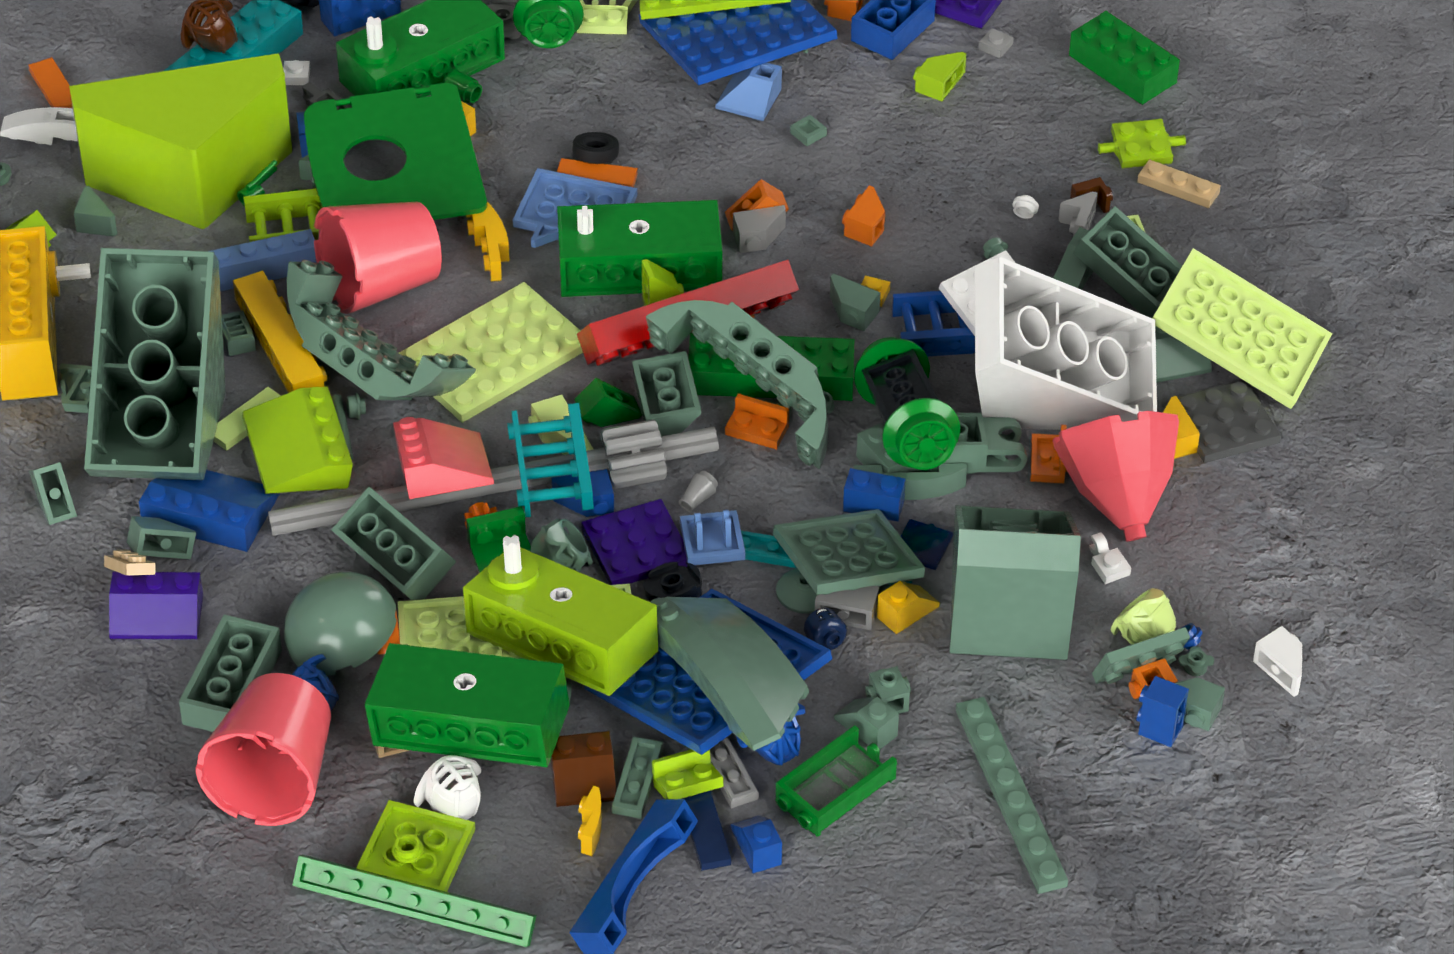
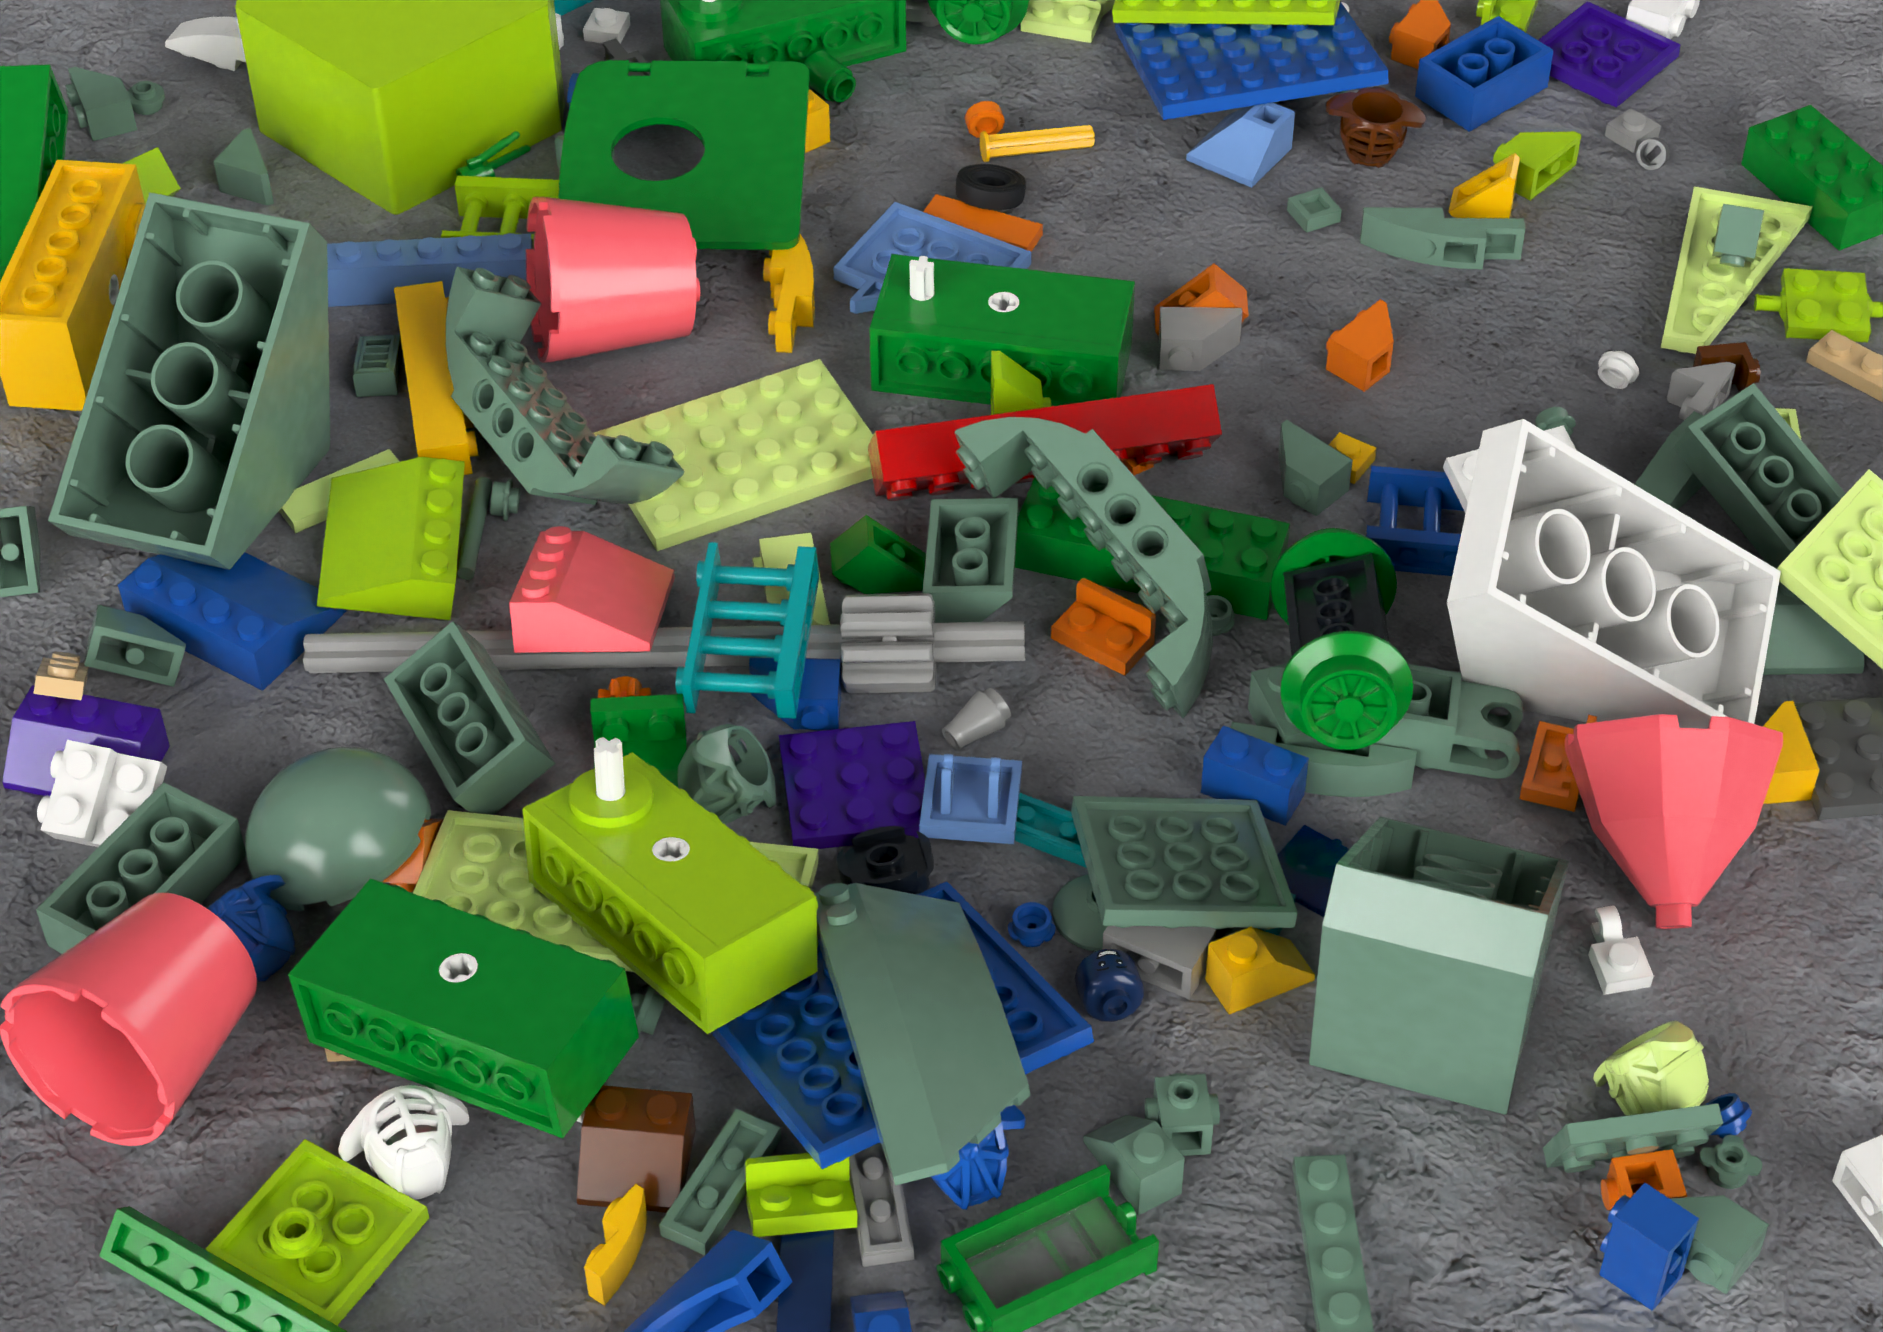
camera: 15 degrees right, 0 degrees up
(180, 630) = (95, 792): none -> white plate
(576, 101) = (984, 117): none -> orange tile
(613, 111) = (1035, 141): none -> yellow axle
(768, 604) = (1031, 916): none -> blue plate
(833, 66) = (1373, 124): none -> reddish brown piece
(887, 138) = (1446, 242): none -> sand green slope
(916, 102) = (1488, 193): none -> yellow slope
(1018, 60) = (1647, 147): none -> hinge
(1072, 122) = (1710, 292): none -> yellowish green wing
(1080, 107) = (1737, 235): none -> sand green slope

